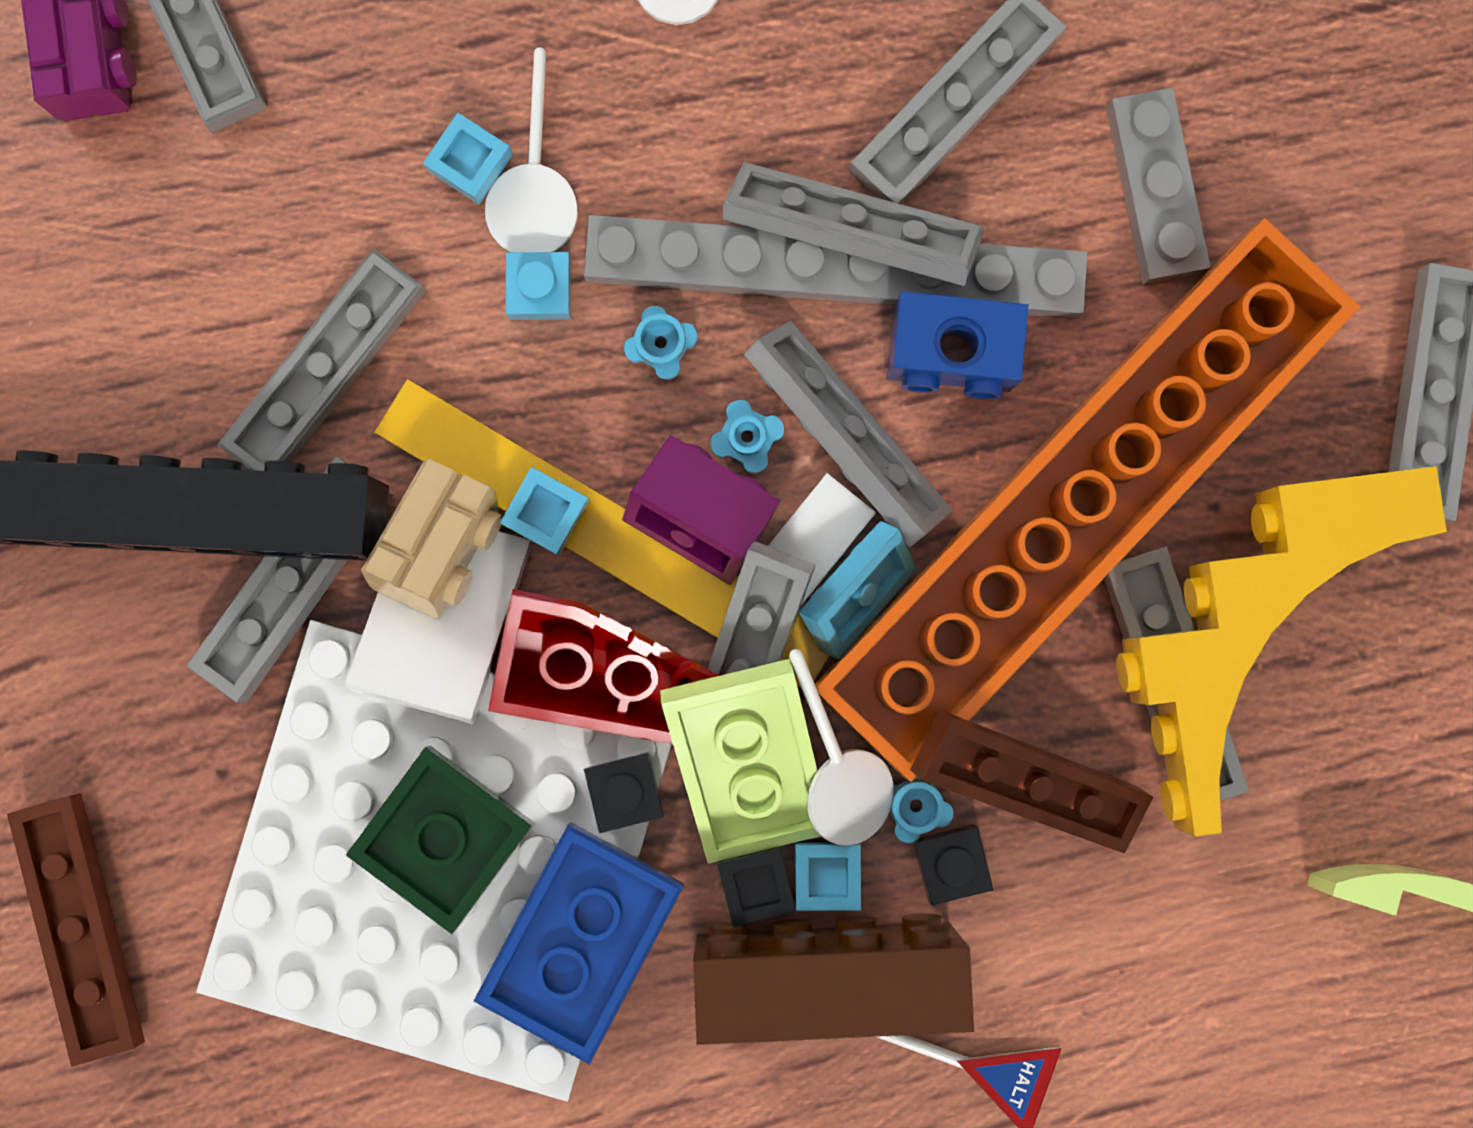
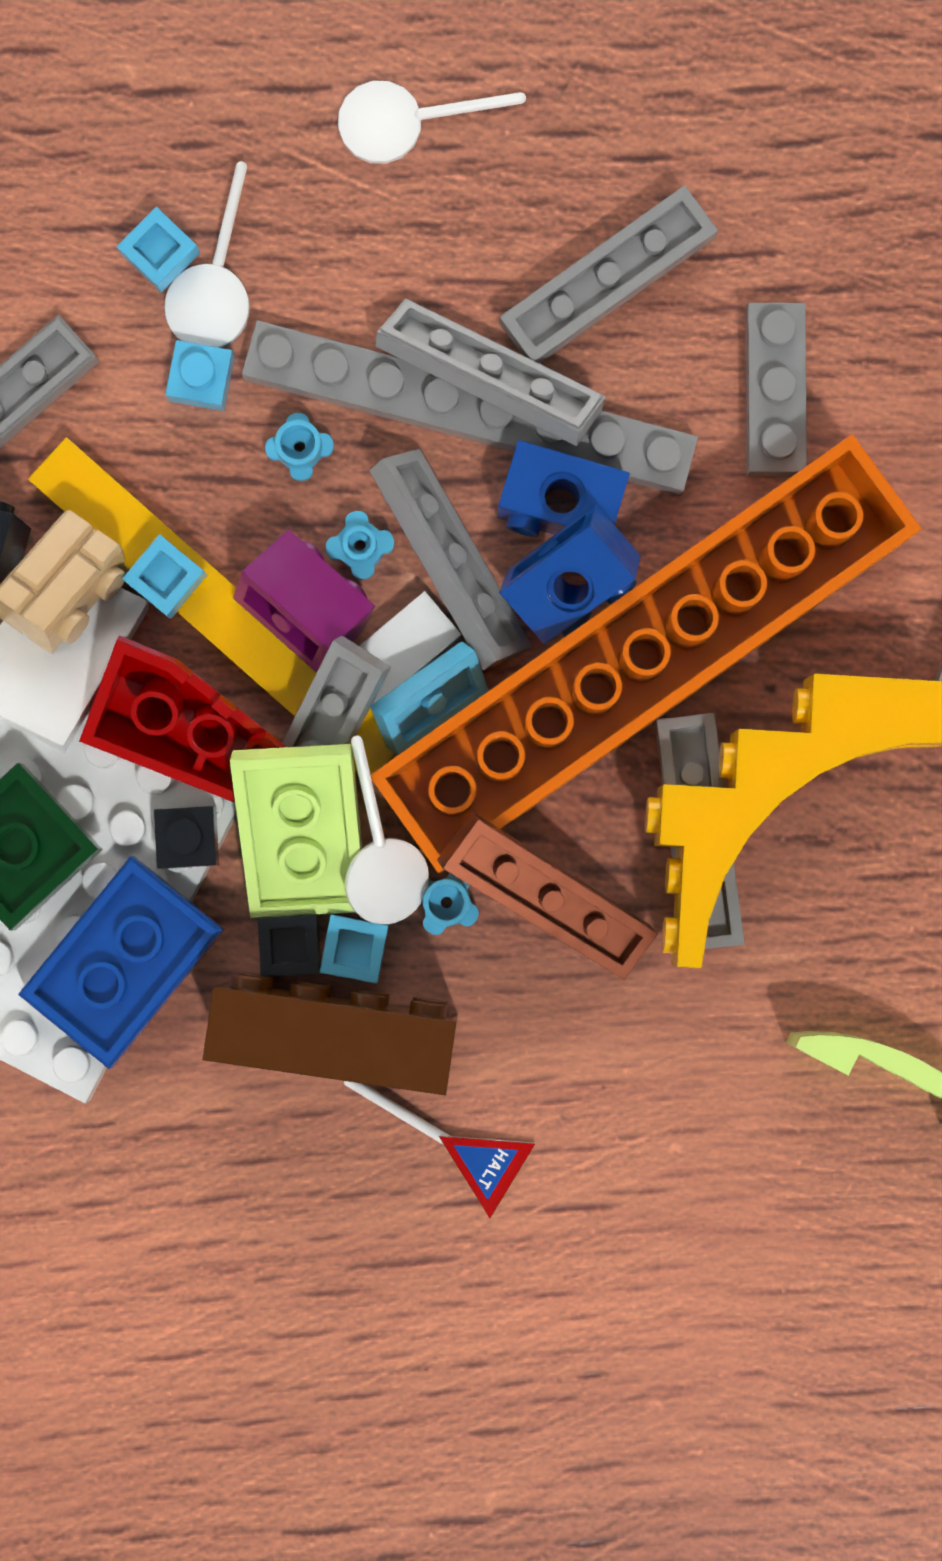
camera: 15 degrees right, 0 degrees up
(953, 864) = (469, 961): black plate -> none
(996, 393) = (585, 546): none -> blue brick

